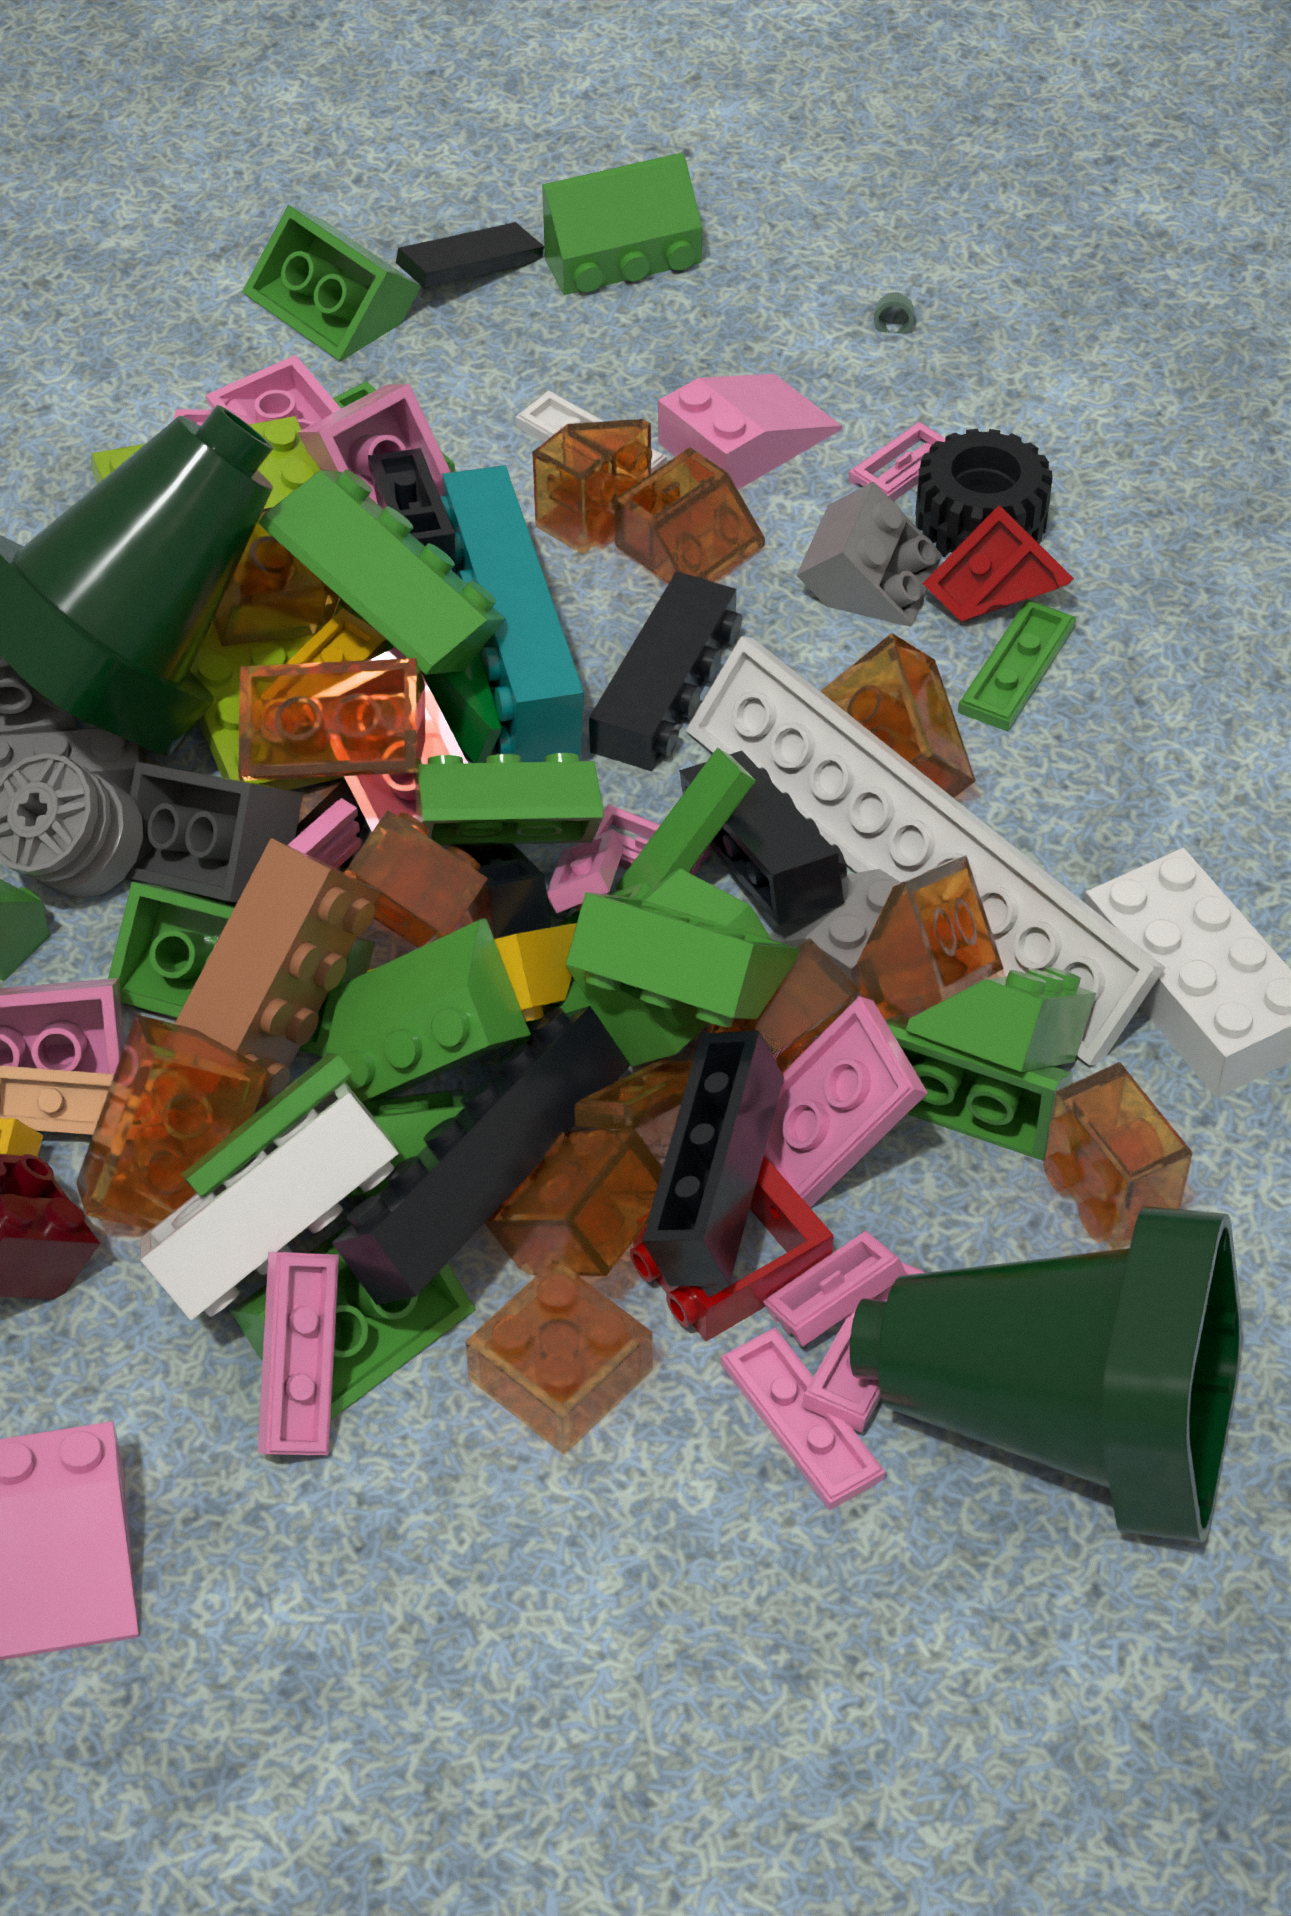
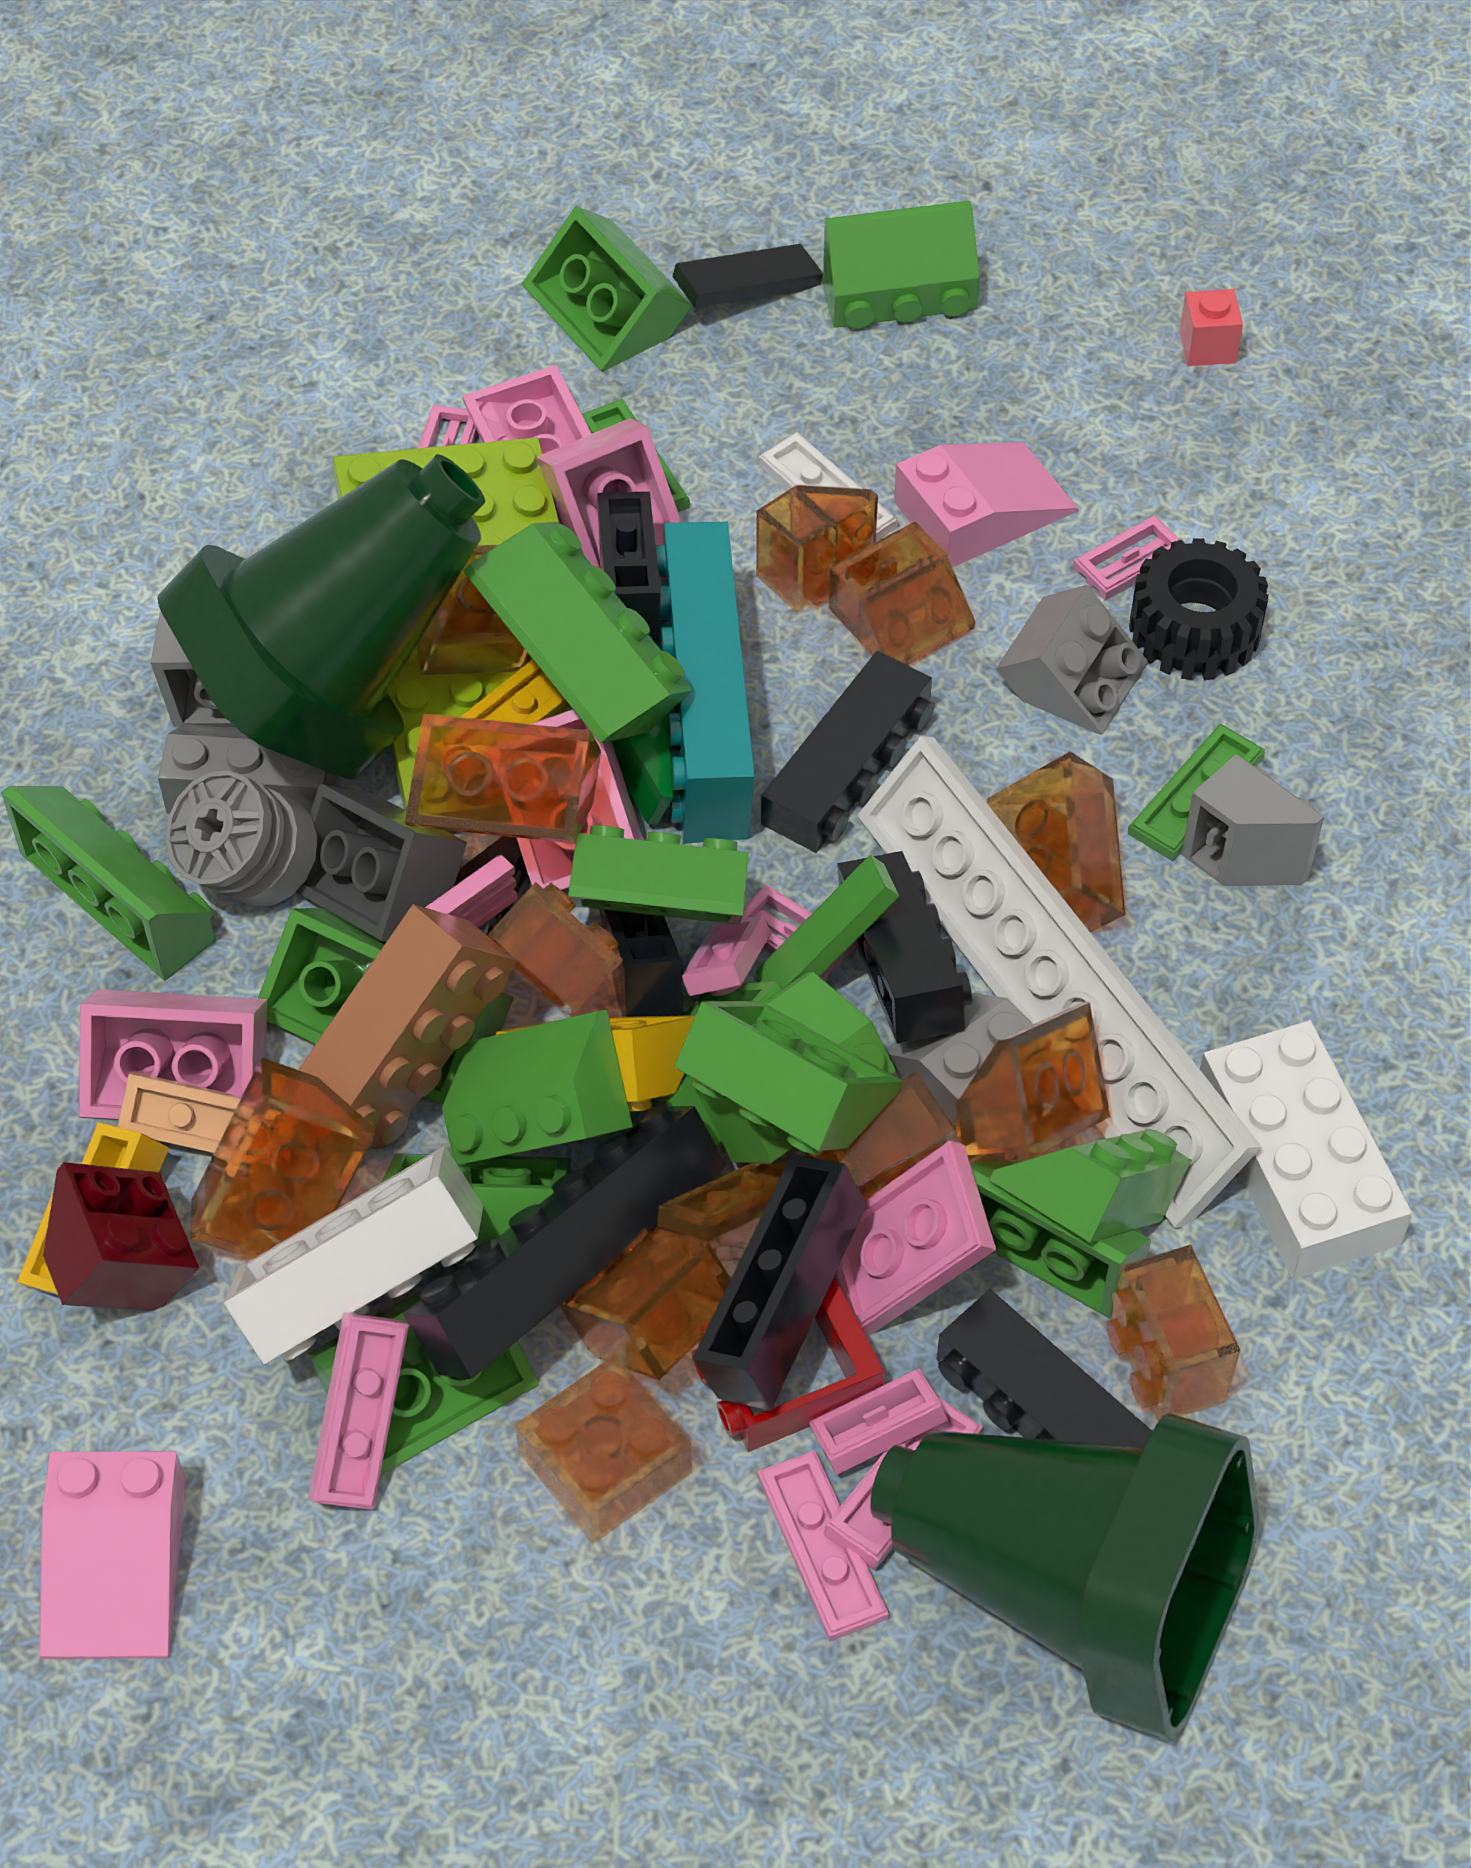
camera: 10 degrees right, 5 degrees up
(267, 1124) = (365, 1183): bright green tile -> none
(903, 315) = (1165, 393): sand green hinge -> none
(936, 247) = (1211, 327): none -> coral brick
(969, 1217) = (1029, 1380): none -> black brick
(995, 570) = (1192, 691): red wing -> none
(1083, 684) = (1250, 829): none -> light grey slope

